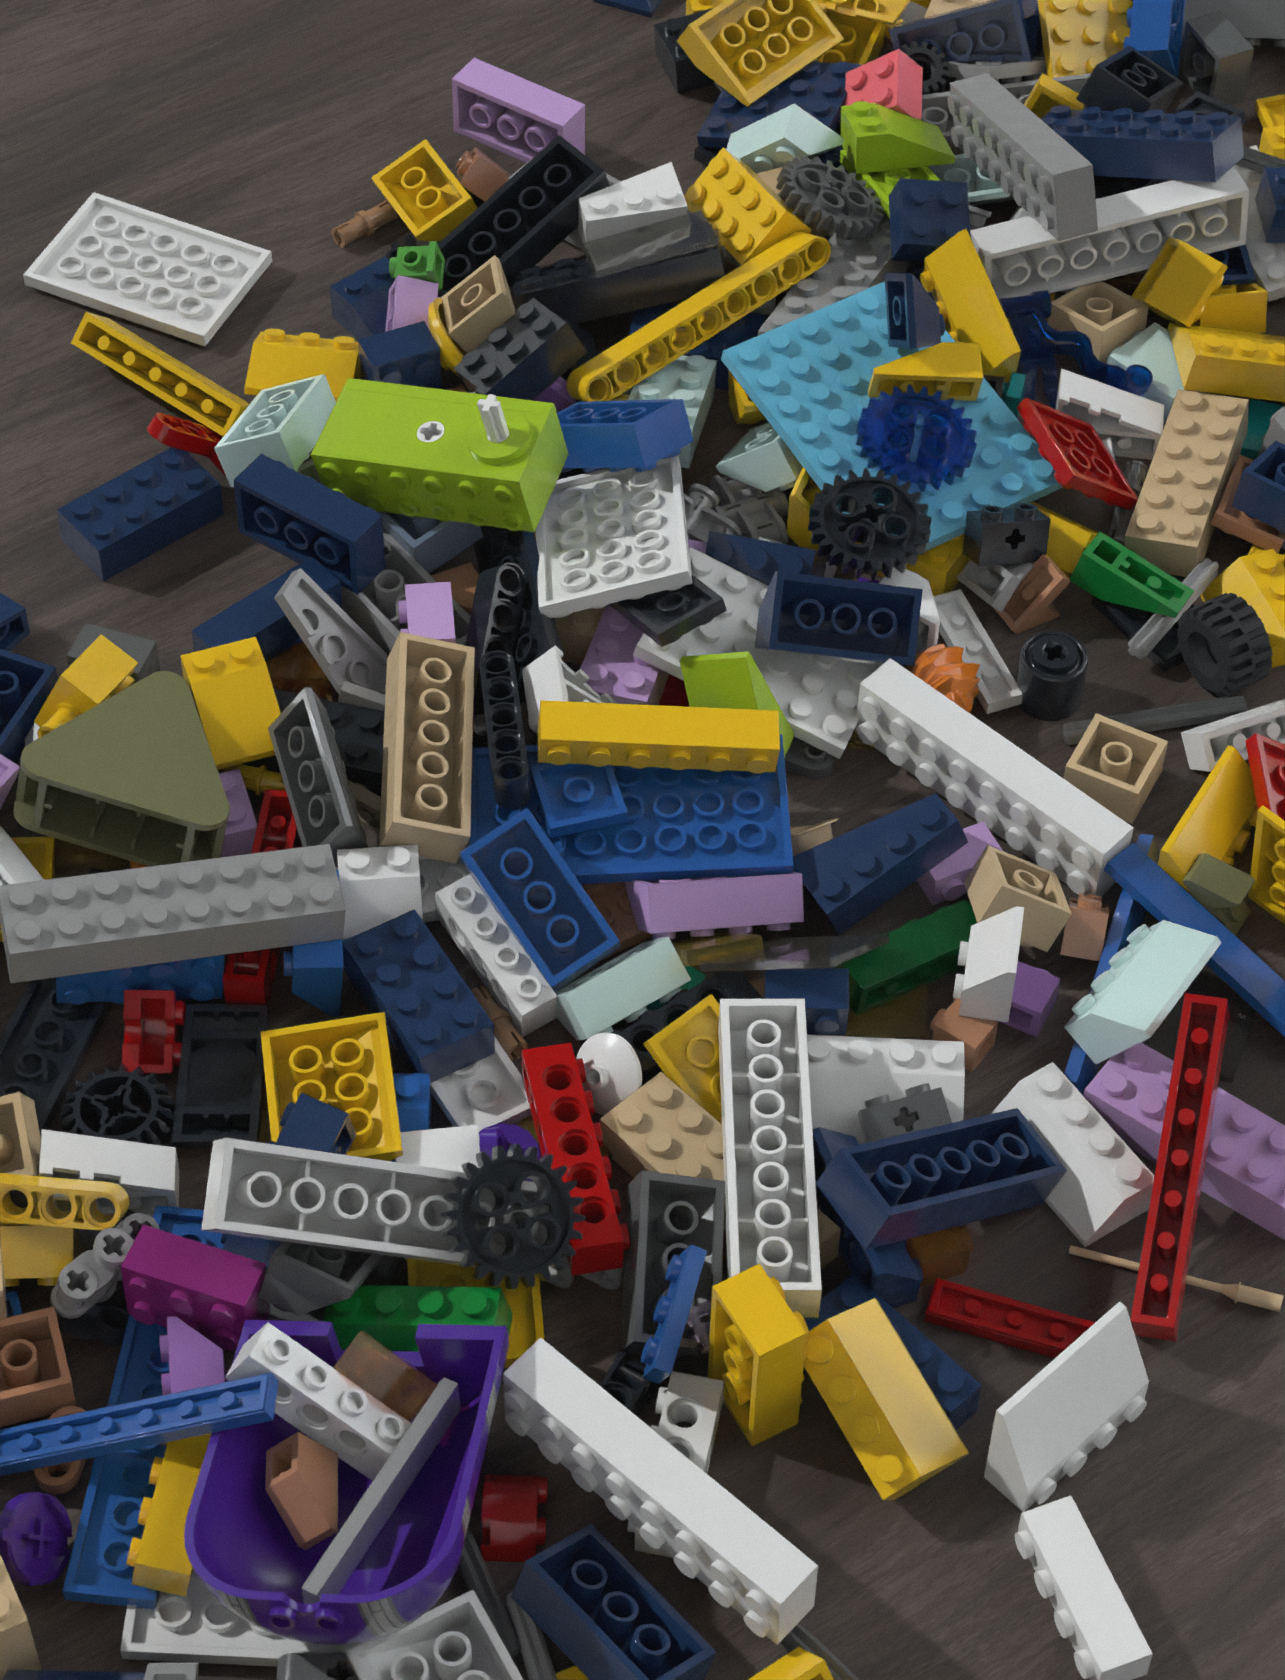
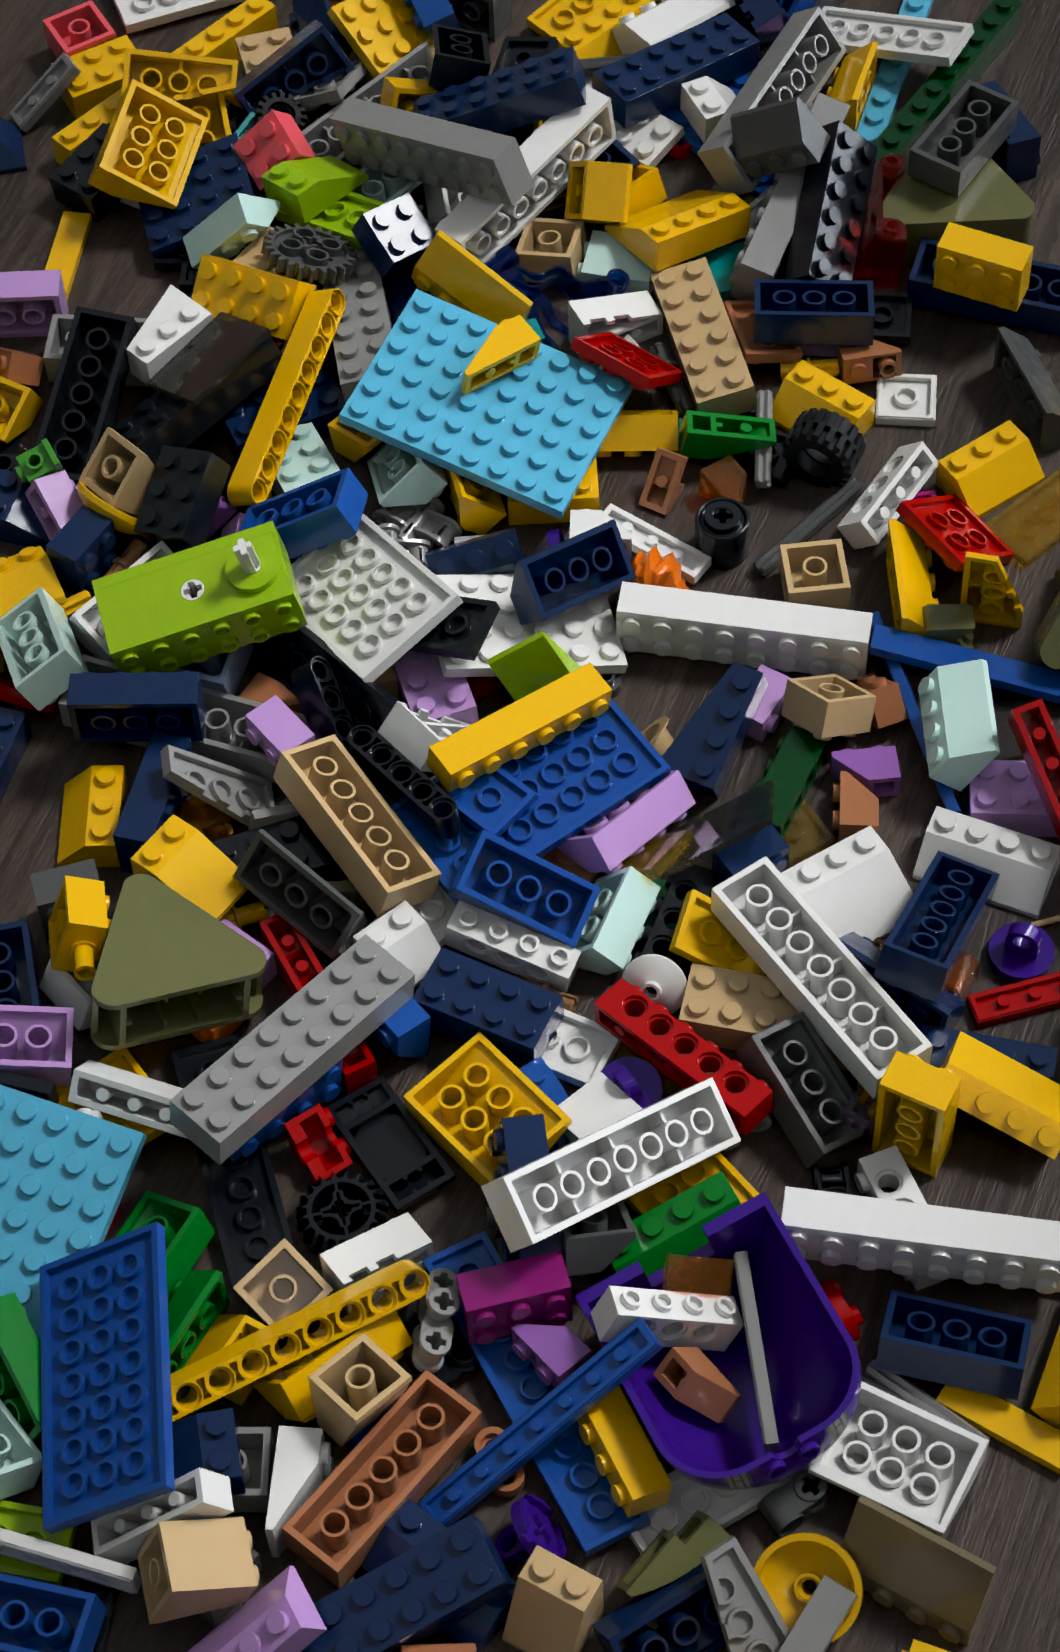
camera: 30 degrees left, 5 degrees up
(132, 1648) = (672, 1555): none -> olive slope
(210, 598) = (91, 814): none -> yellow slope
(522, 1254) = (721, 1139): black gear -> none
(625, 104) = (69, 246): none -> yellow tile
(672, 1313) = (840, 1119): blue plate -> none
(869, 524) = (519, 474): black gear -> none
(911, 313) = (459, 317): dark blue slope -> none
(922, 1102) = (892, 896): dark grey brick -> none
(943, 442) = (523, 408): clear blue gear -> none
(989, 966) = (855, 762): white slope -> none
(994, 582) = (630, 481): light grey slope -> none
(1006, 535) = (624, 447): black brick -> none
(1035, 1268) = (1020, 952): none -> dark purple tile
(1100, 631) = (723, 479): none -> clear orange slope

